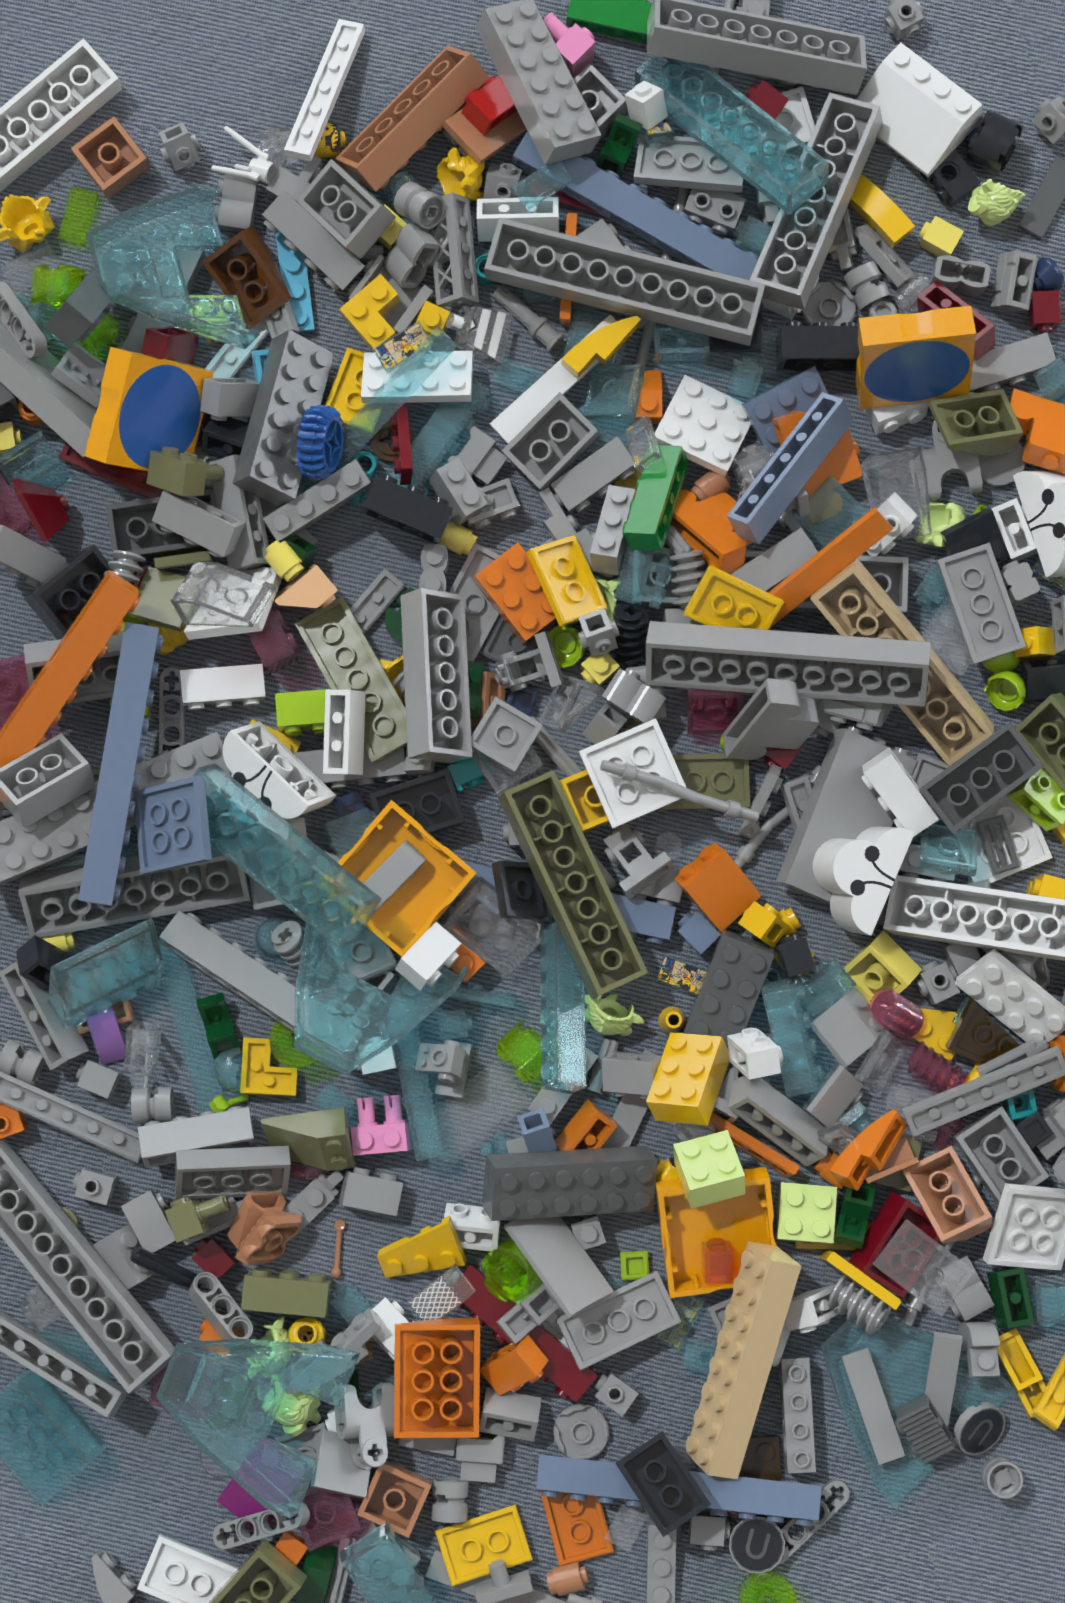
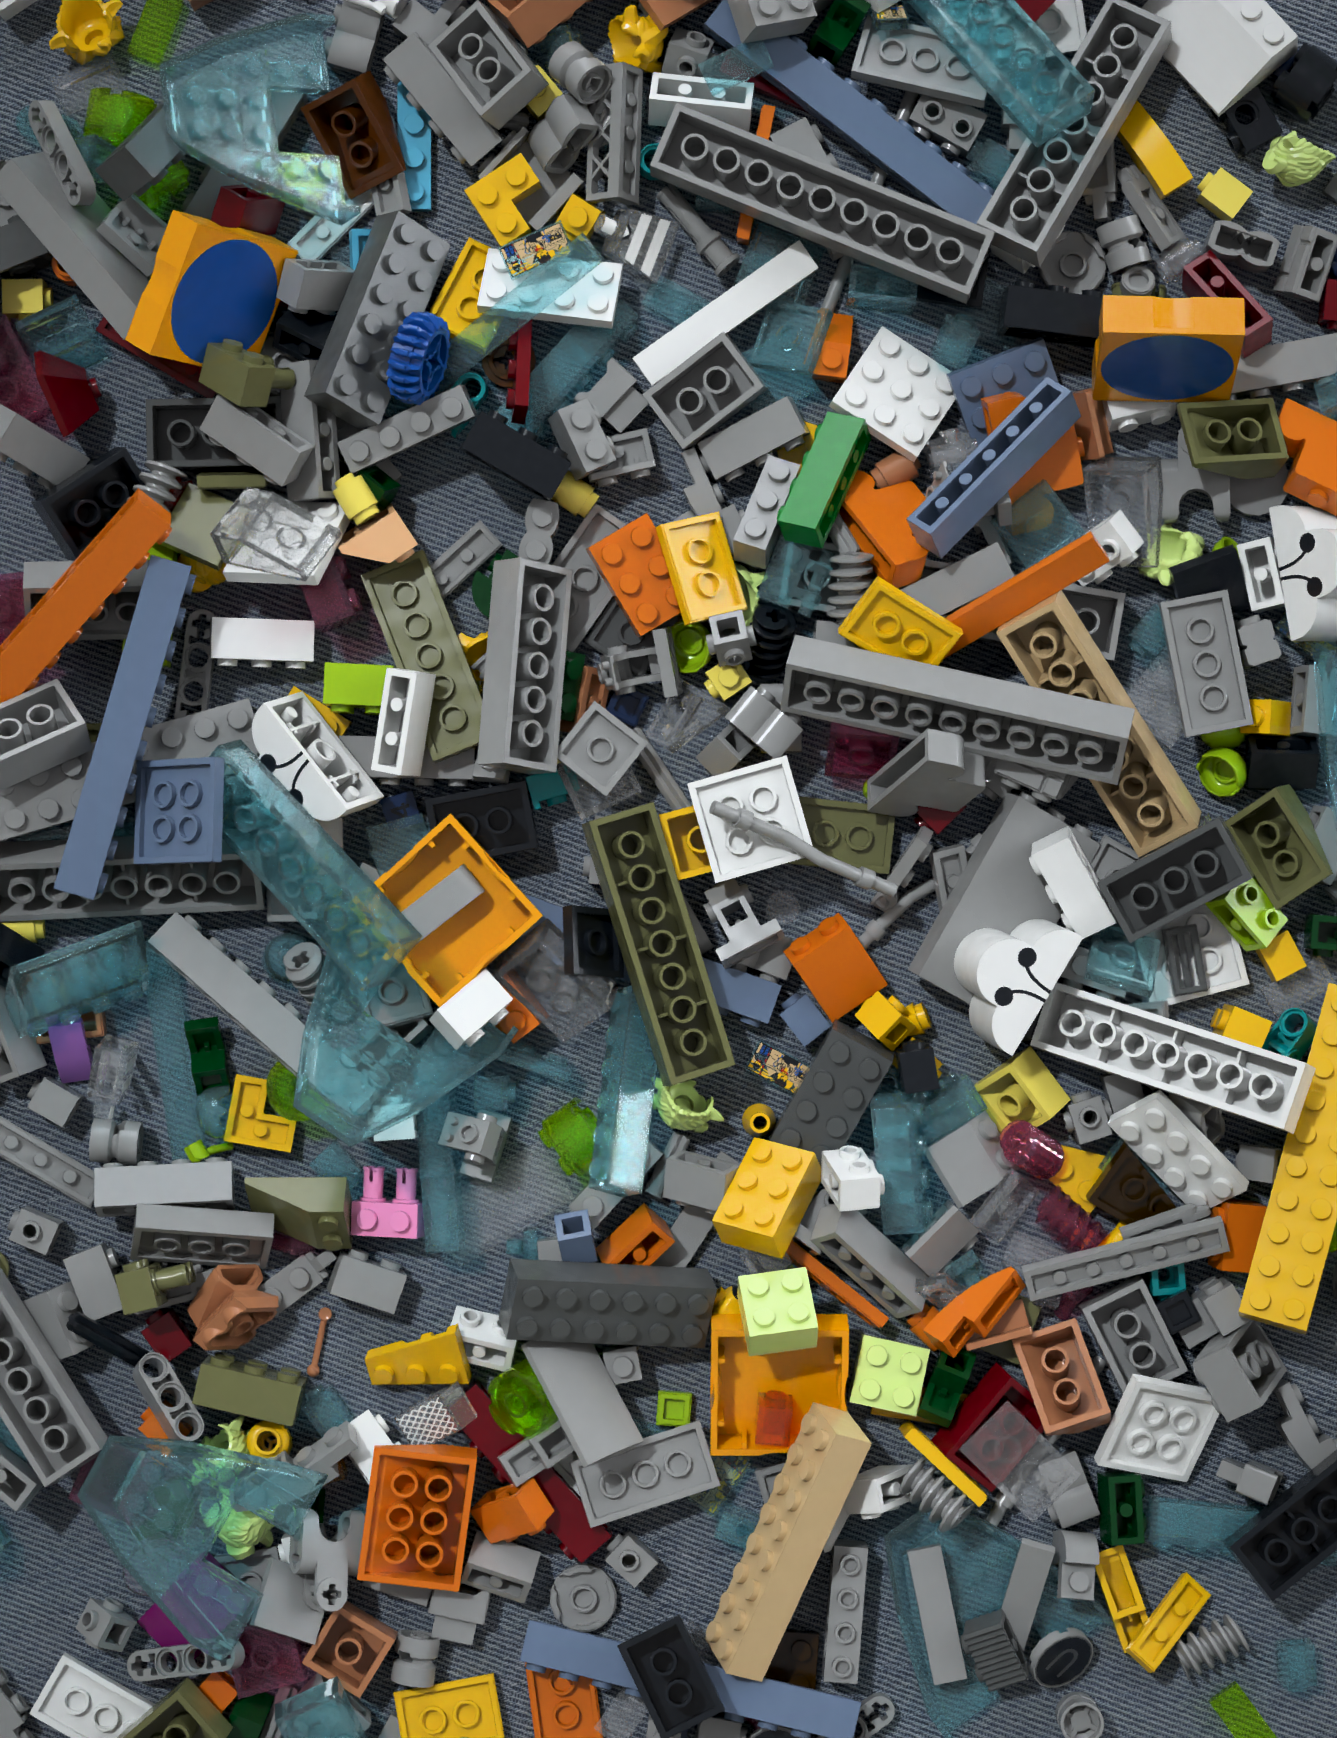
camera: 10 degrees right, 5 degrees up
(191, 1505) = (105, 1624): none -> light grey brick
(599, 345) = (781, 279): yellow slope -> none
(642, 443) = (817, 409): clear tile -> none
(863, 431) = (1092, 426): none -> nougat panel

